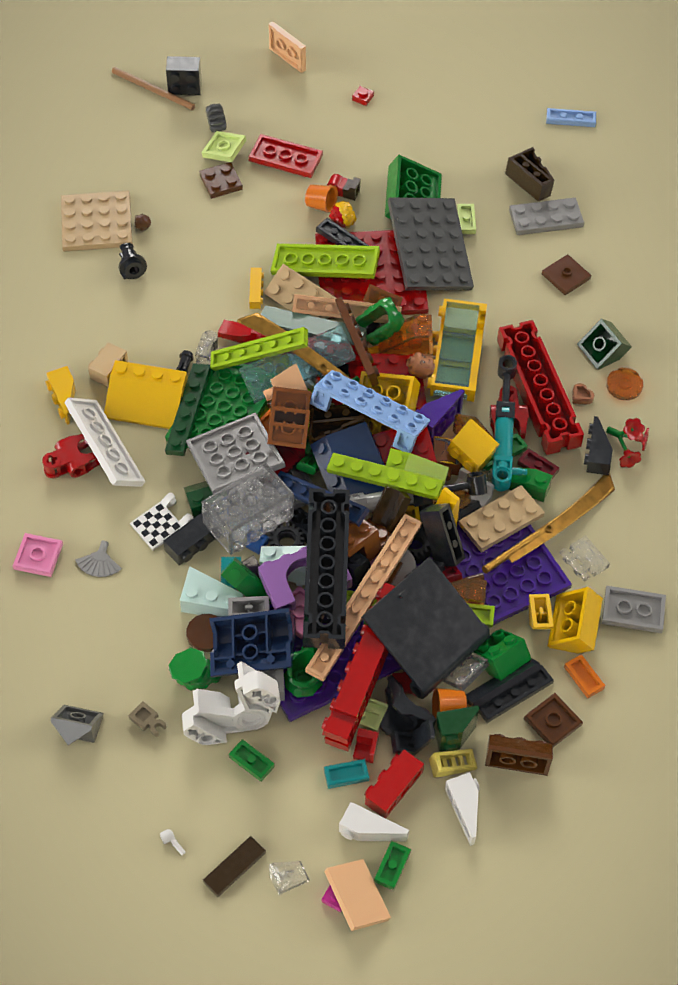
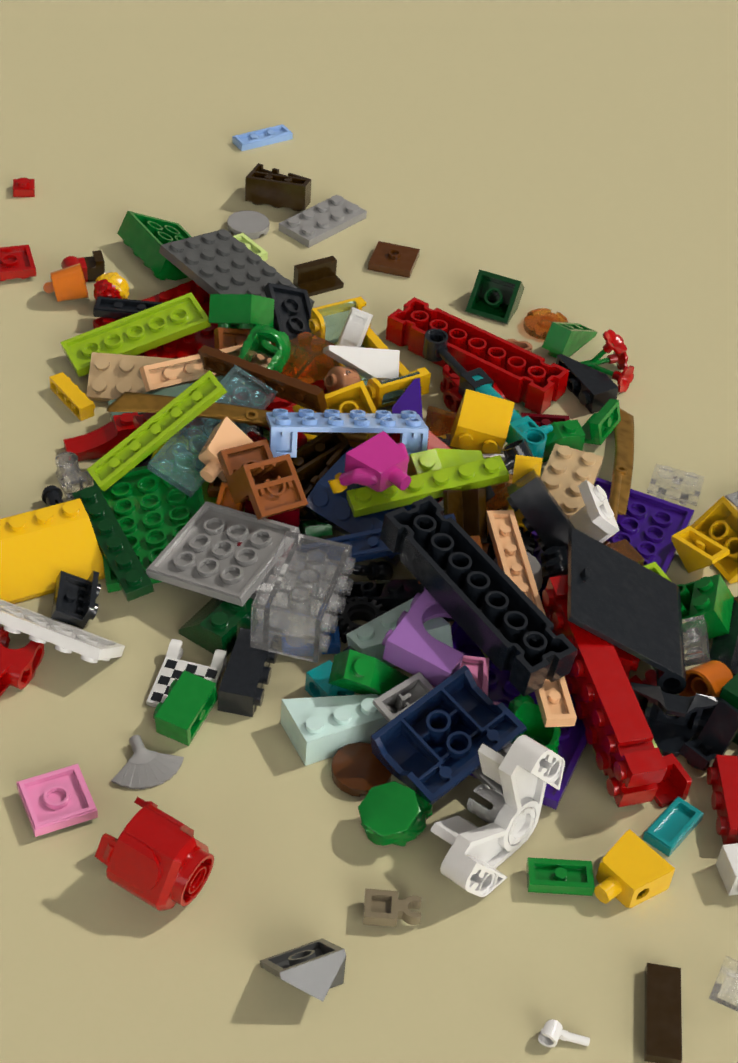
camera: 40 degrees left, 15 degrees down
(50, 618) = (156, 858): none -> red piece
(140, 435) = (75, 599): none -> black bracket
(141, 540) = (185, 707): none -> green brick
(290, 783) = (632, 872): none -> yellow torso
(357, 446) = (374, 464): none -> dark pink torso
(396, 278) = (240, 310): none -> green brick
(438, 285) = (291, 309): none -> black plate
(446, 361) = (368, 362): none -> white slope
(467, 328) = (354, 328): none -> white tile
(478, 553) = (596, 517): none -> white bracket
(489, 196) = (249, 223): none -> light grey tile
(495, 266) = (317, 276): none -> dark brown panel
(576, 485) = (602, 423): none -> green panel
(623, 404) = (567, 338): none -> green slope

